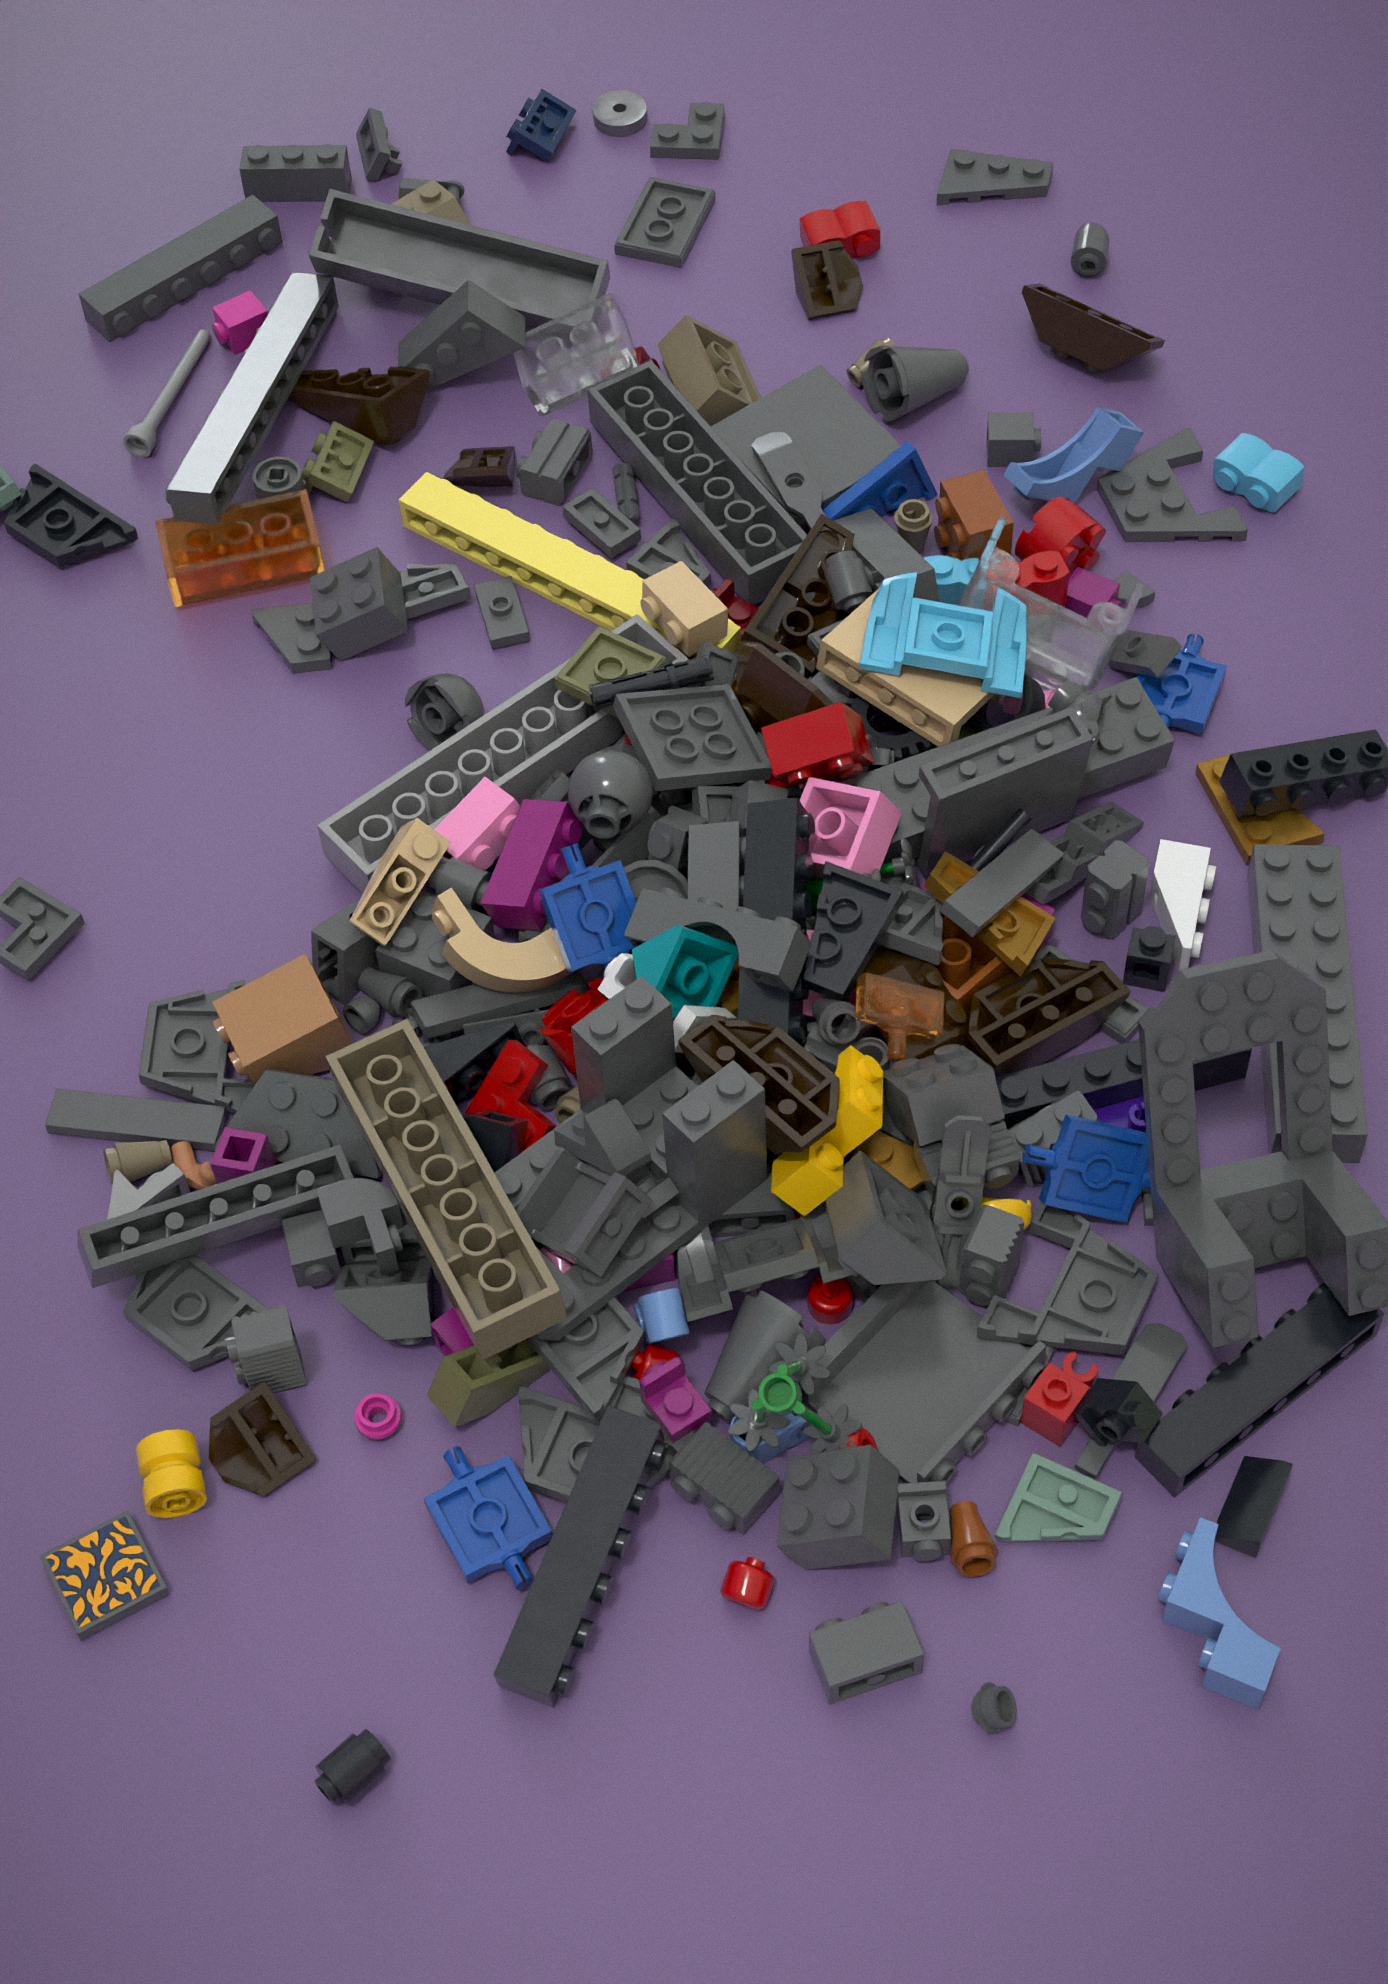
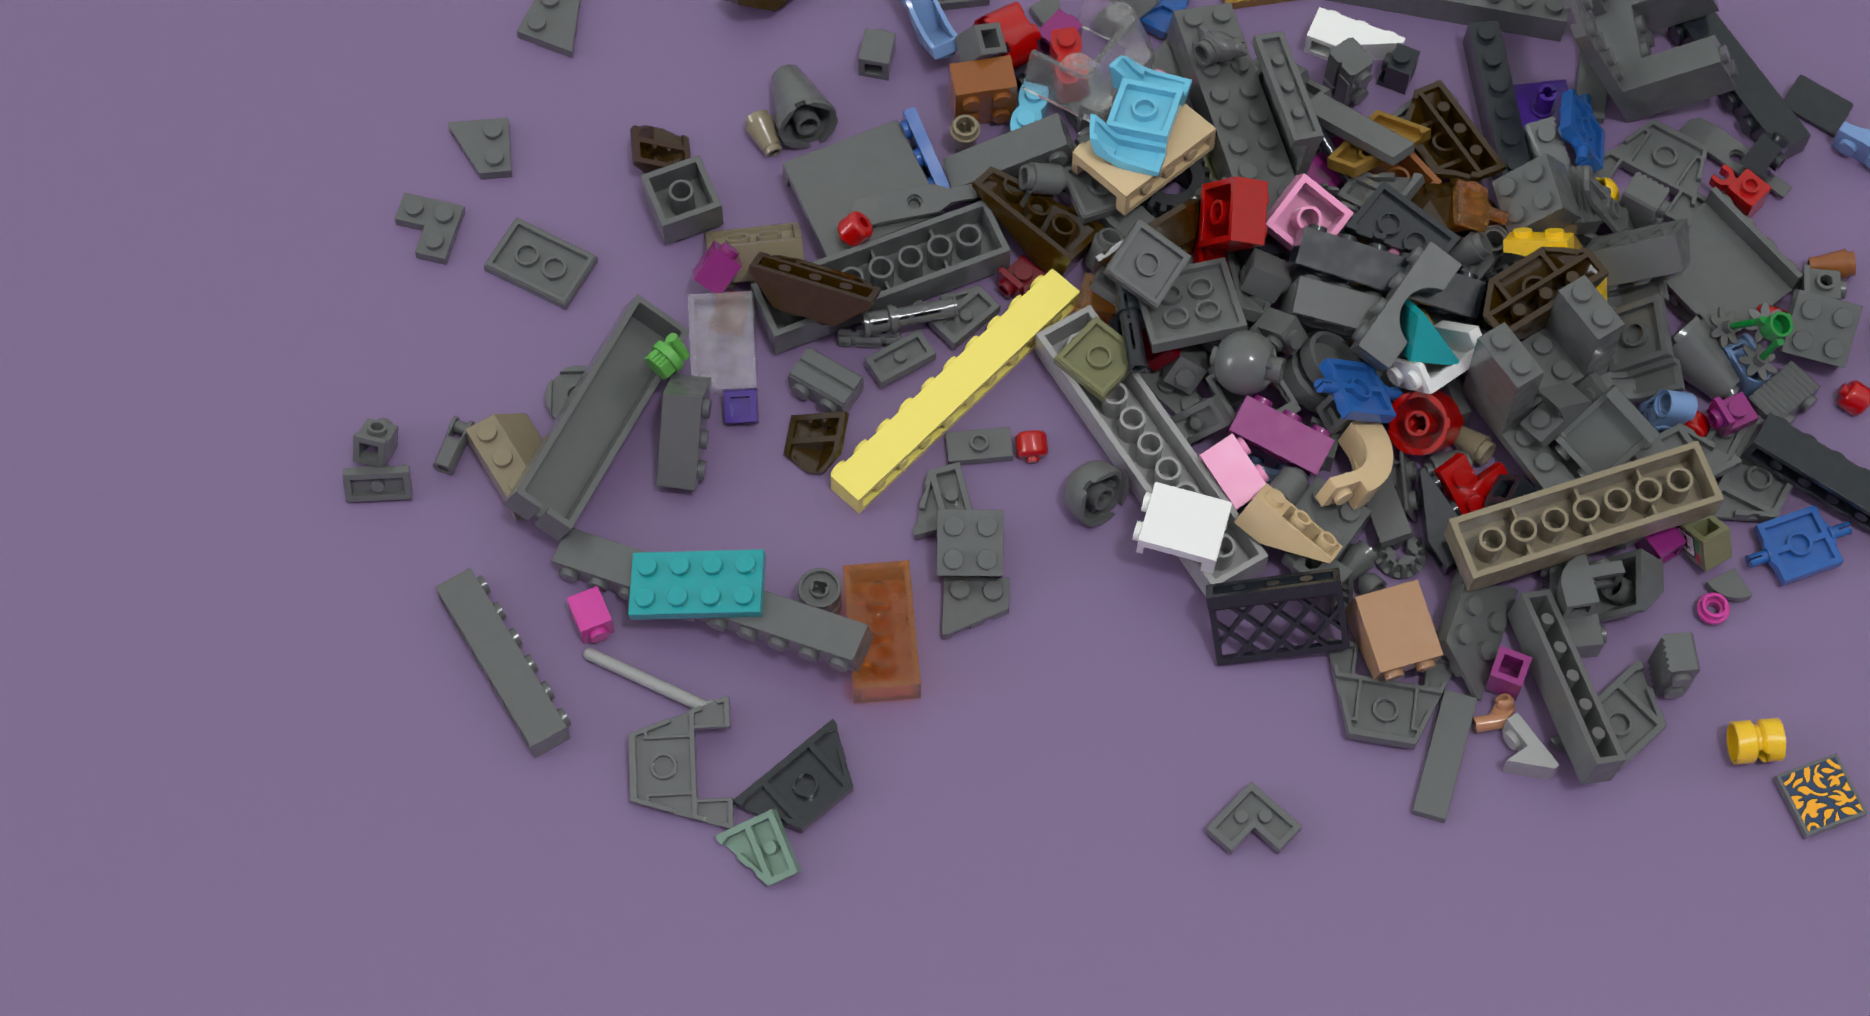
camera: 85 degrees left, 10 degrees up
(68, 407) = (666, 765): none -> dark grey wing
(137, 1159) = (1486, 756): dark tan cone -> none
(256, 1443) = (1734, 685): dark brown slope -> none
(258, 365) = (697, 584): none -> teal plate
(294, 172) = (402, 552): dark grey brick -> none
(299, 855) = (1277, 590): none -> black fence
(338, 461) = (787, 552): olive bracket -> none
(367, 403) = (721, 512): dark brown wedge -> none
(380, 773) = (1183, 524): none -> white panel
(415, 1436) = (1730, 586): none -> dark grey tile
(419, 132) = (379, 434): none -> dark grey brick
(508, 657) = (1031, 445): none -> red piece
(510, 399) = (741, 406): none -> dark purple plate
(534, 298) = (667, 356): none -> bright green piece
(542, 125) = (390, 344): dark blue bracket -> none
(620, 113) = (387, 291): flat silver piece -> none
(641, 496) = (893, 318): none -> dark grey pin
(646, 389) = (812, 289): none -> dark brown wedge
(662, 326) = (717, 267): none -> magenta brick
(684, 608) = (1046, 296): tan brick -> none
(723, 667) = (1146, 264): none -> dark grey tile
(741, 431) = (854, 229): none -> red piece
(760, 302) = (682, 199): none -> dark grey brick
(800, 156) = (485, 145): none -> dark grey wing
(849, 223) = (604, 130): red brick -> none
(1022, 495) = (981, 42): none -> dark grey brick
(1057, 1505) = (1812, 212): sand green wing -> none

